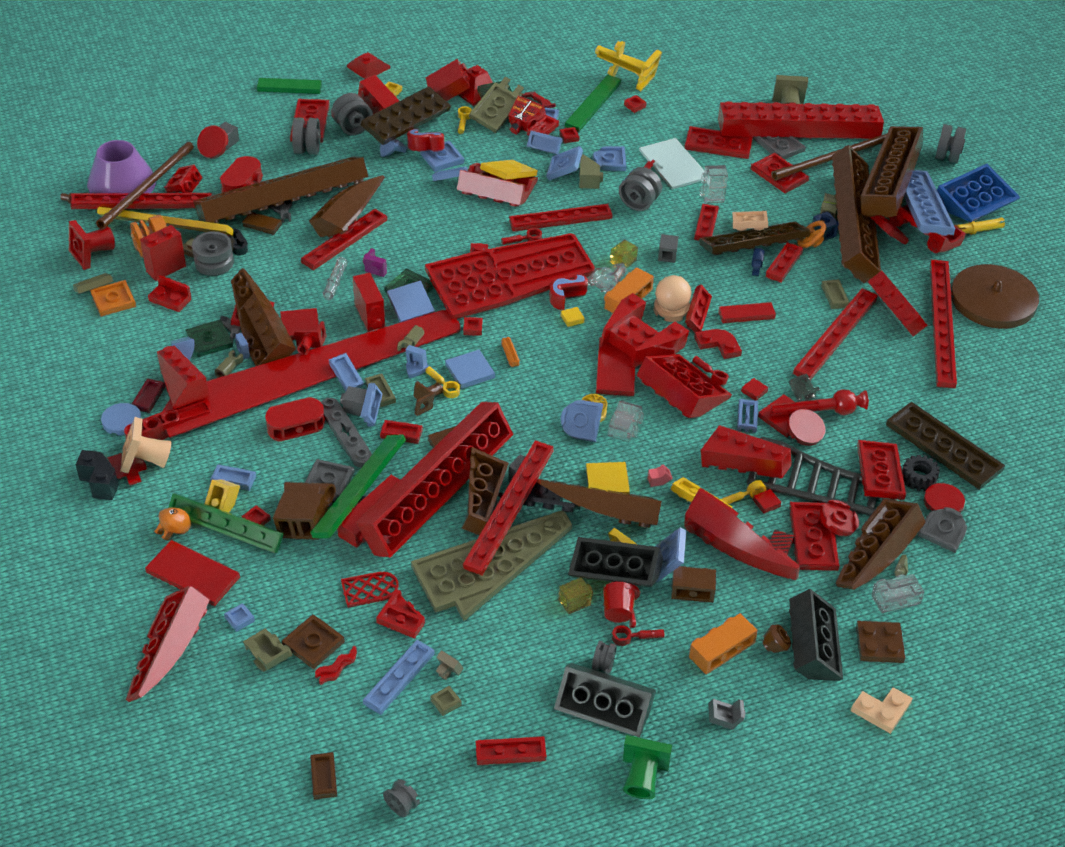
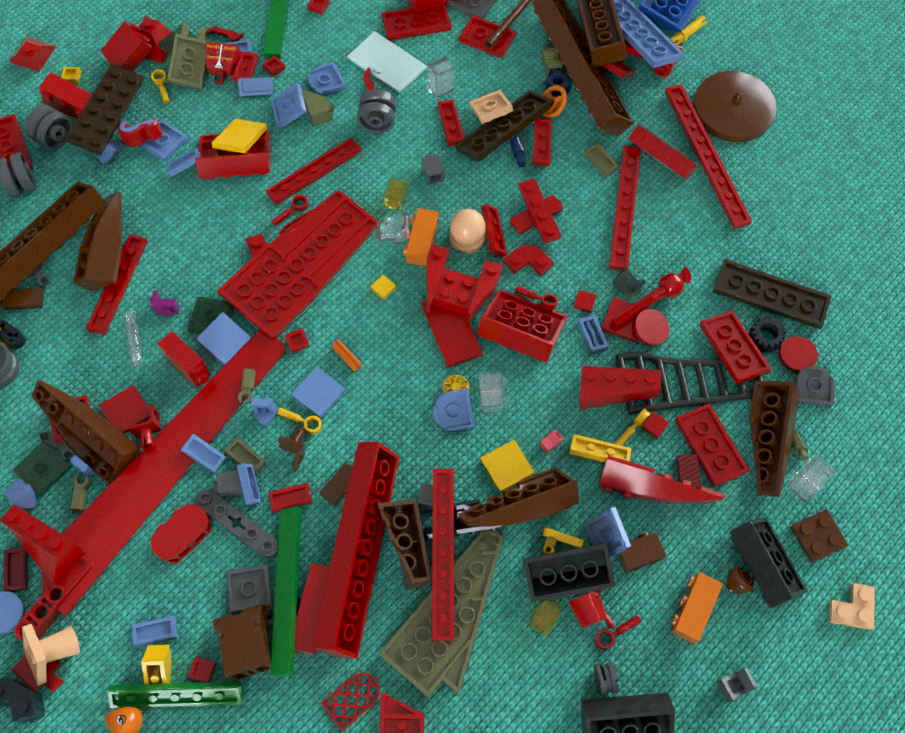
camera: 25 degrees left, 20 degrees up
(565, 287) = (361, 257): red animal -> none
(749, 308) = (539, 211): none -> red plate
(839, 518) = (725, 418): red tile -> none

